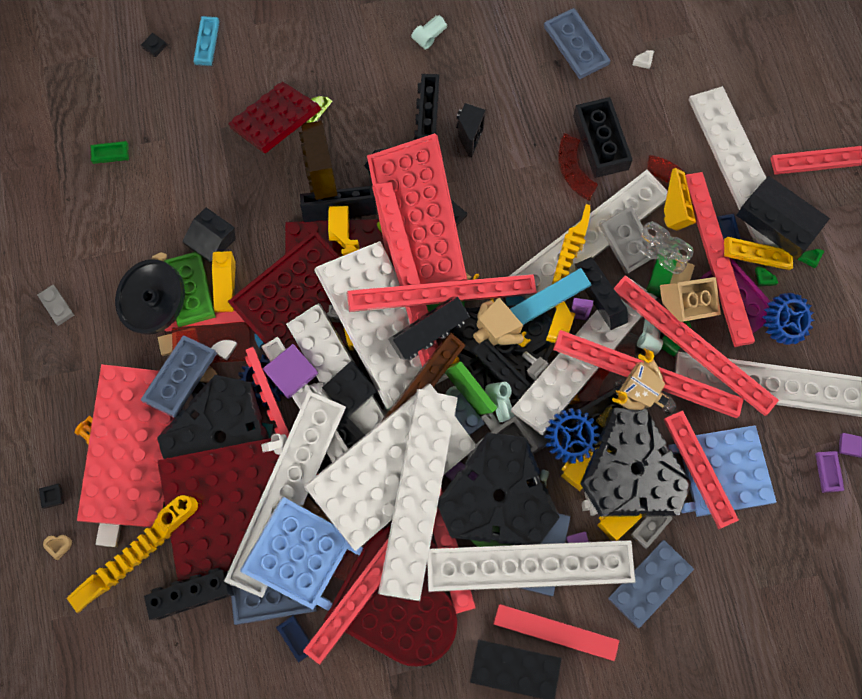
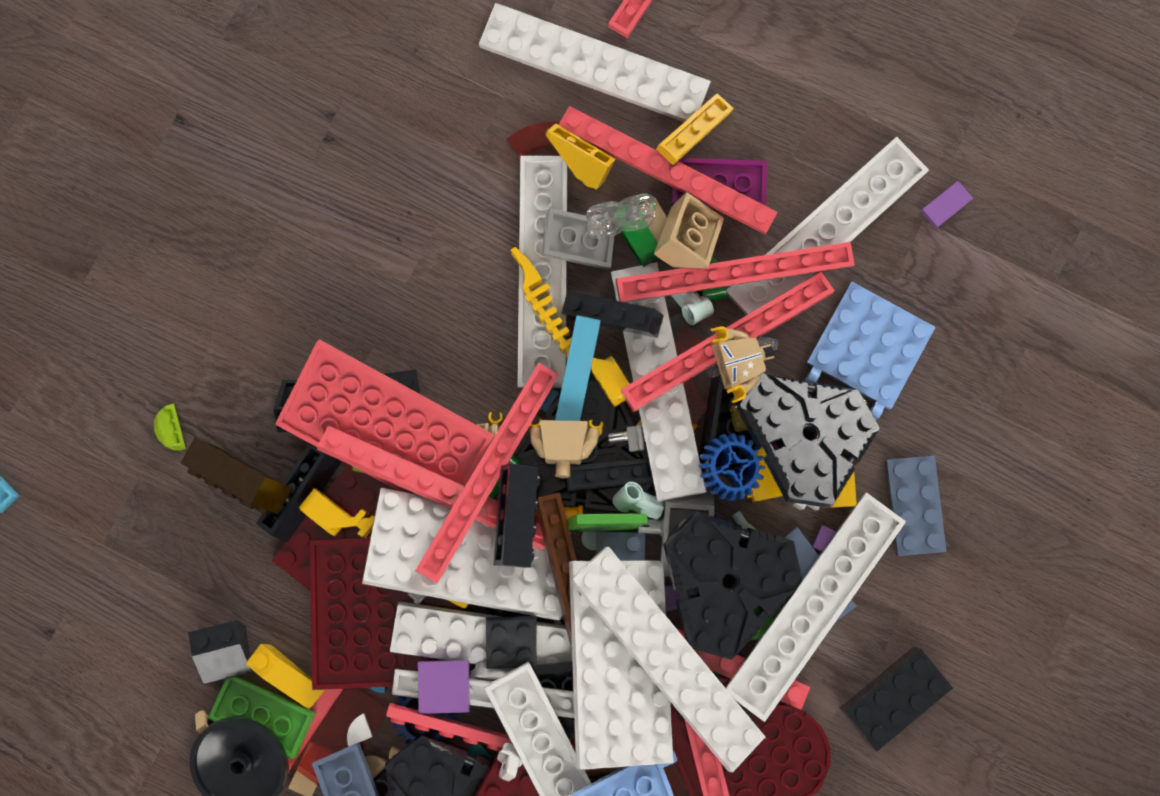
camera: 50 degrees left, 10 degrees up
(109, 152) = (31, 683): green tile -> none
(274, 117) = (144, 481): dark red plate -> none
(426, 34) = (181, 245): light aqua piece -> none
(427, 106) = (271, 315): black brick -> none
(470, 126) = (326, 288): black slope -> none
(556, 632) = (890, 630): coral tile -> none
(570, 169) = (455, 227): clear red tile -> none
(576, 43) = (324, 102): sand blue plate -> none
(581, 308) = (610, 346): medium lavender tile -> none
(602, 137) = (450, 169): black brick -> none
(644, 59) = (399, 51): white tile -> none
(650, 529) = (869, 470): light grey plate -> none
(701, 470) = (854, 371): coral plate -> none
(728, 226) = (645, 131): dark blue tile -> none
(764, 277) = (720, 142): green tile -> none
(781, 316) = (787, 155): blue gear -> none
(782, 217) = (679, 72): black slope -> none
(811, 257) = (737, 80): green tile -> none
(829, 471) = (946, 253): medium lavender tile -> none

